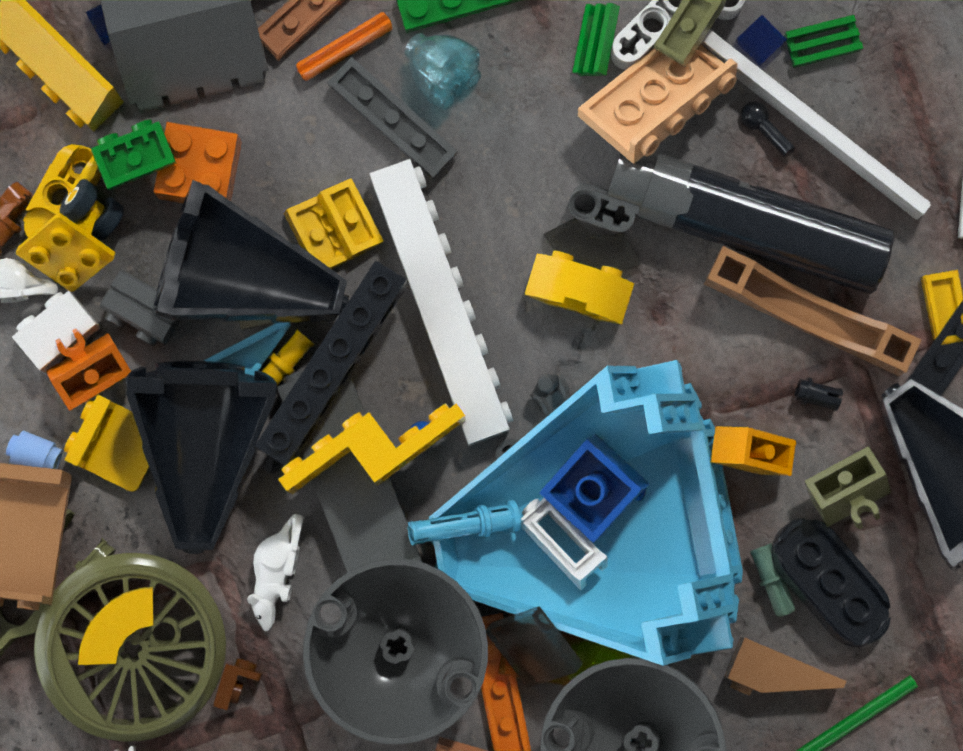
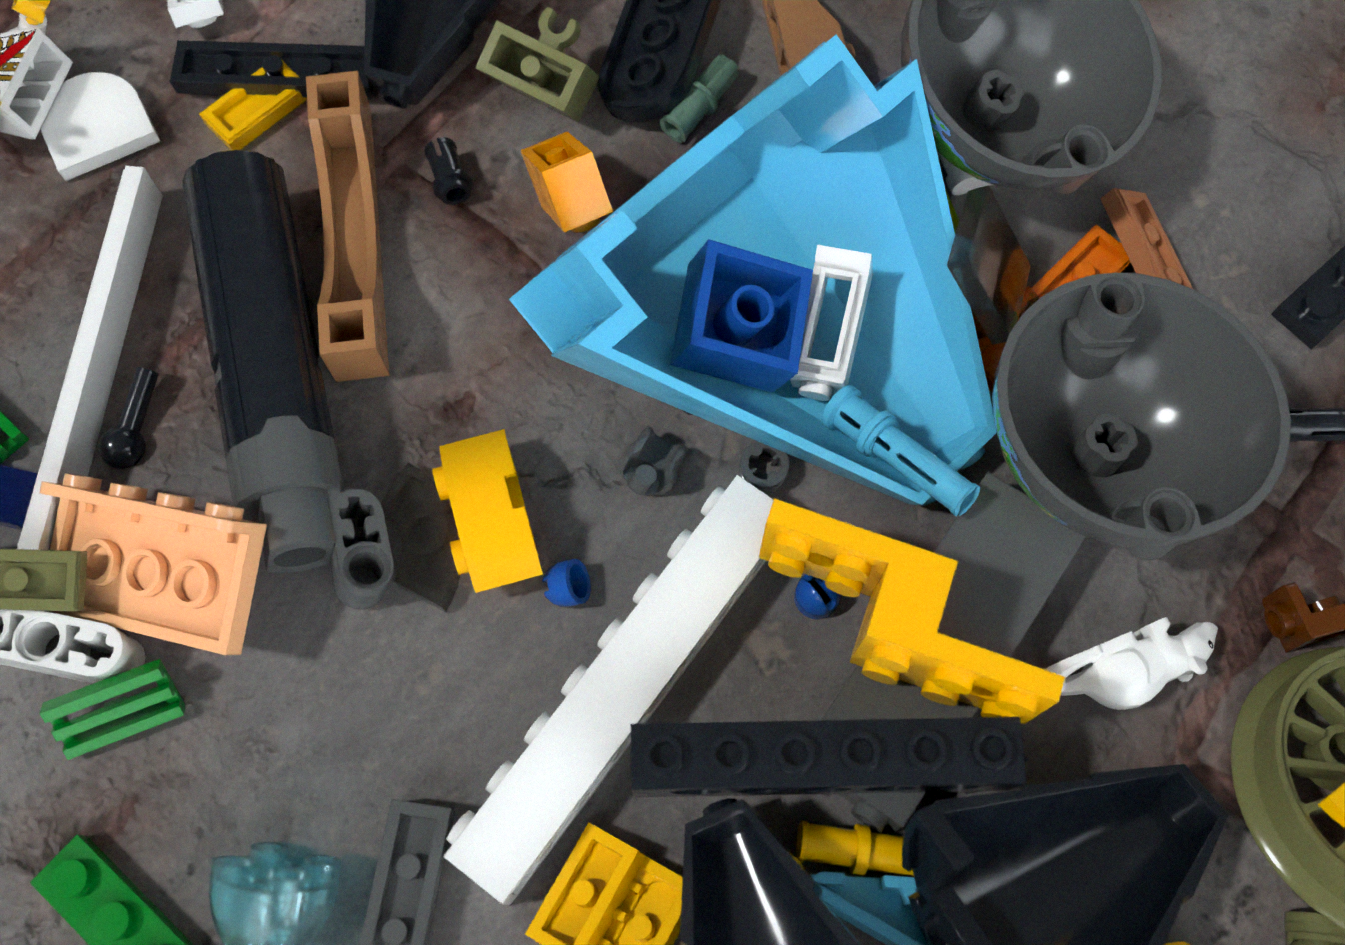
camera: 120 degrees left, 15 degrees down
(513, 306) = (567, 583): none -> blue hinge

